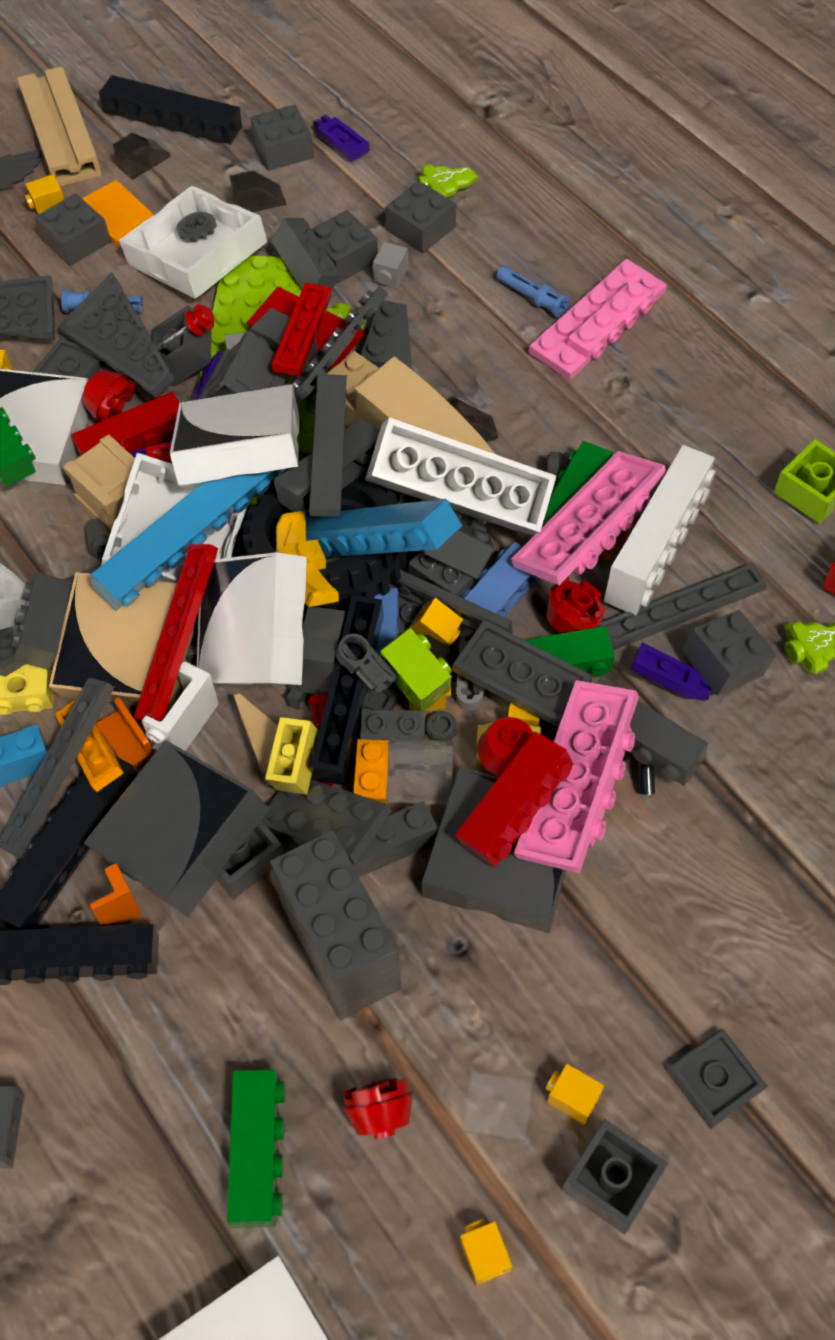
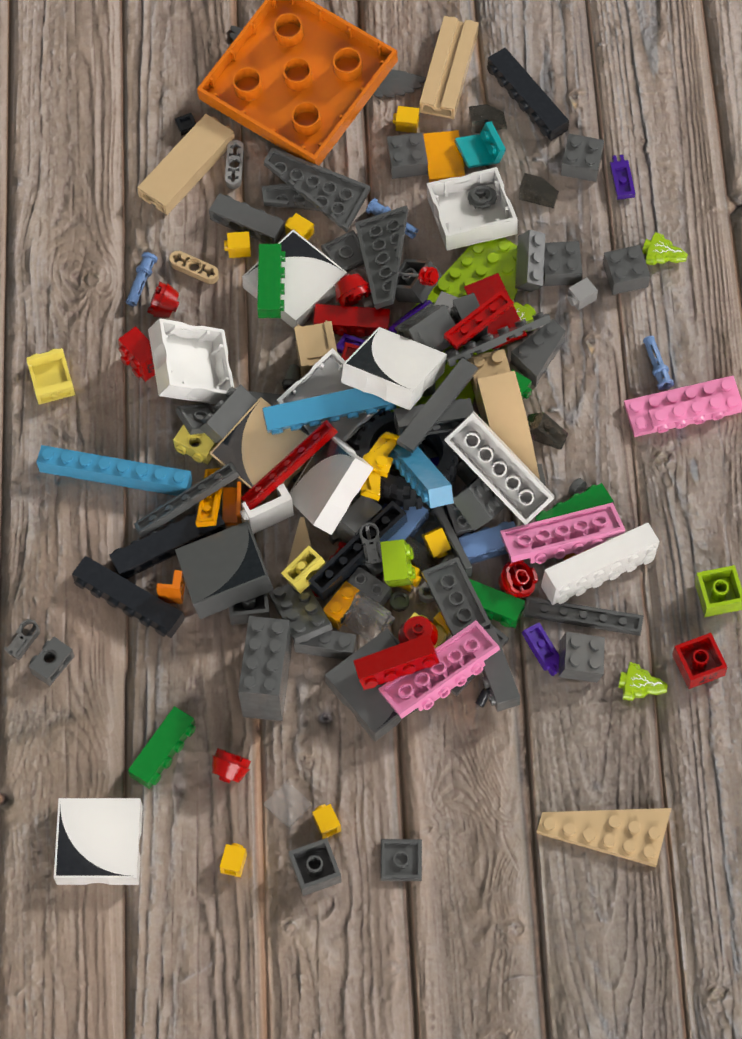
camera: 35 degrees right, 5 degrees up
(161, 181) = (481, 148): none -> teal bracket

